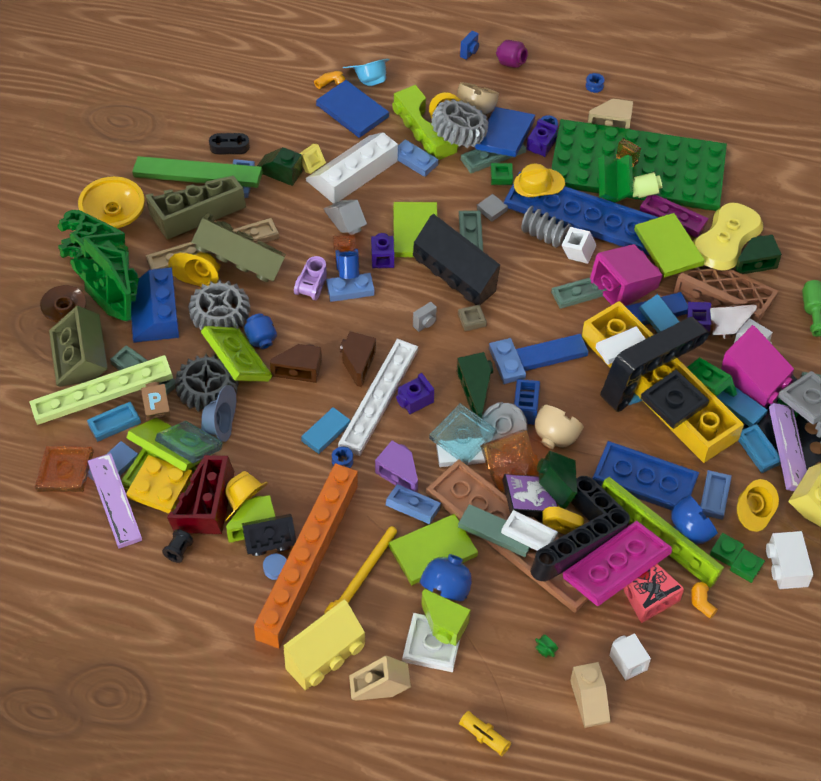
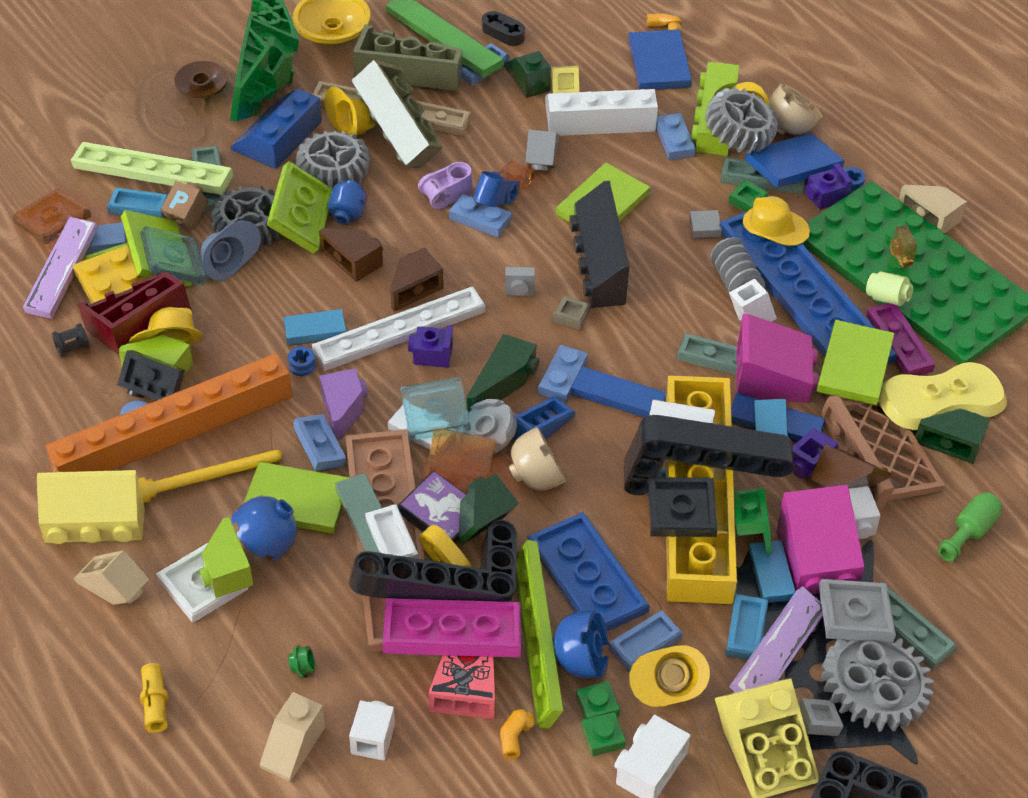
camera: 40 degrees right, 5 degrees down
(78, 347) = (175, 122): olive slope -> none
(371, 73) = (711, 33): medium azure piece -> none
(382, 246) = (547, 195): dark purple brick -> none
(469, 45) = (844, 61): blue plate -> none
(471, 227) = (654, 238): sand green tile -> none
(512, 53) = (882, 91): magenta head -> none
(595, 87) = (951, 173): blue bush -> none
(615, 178) = (858, 261): green panel -> none

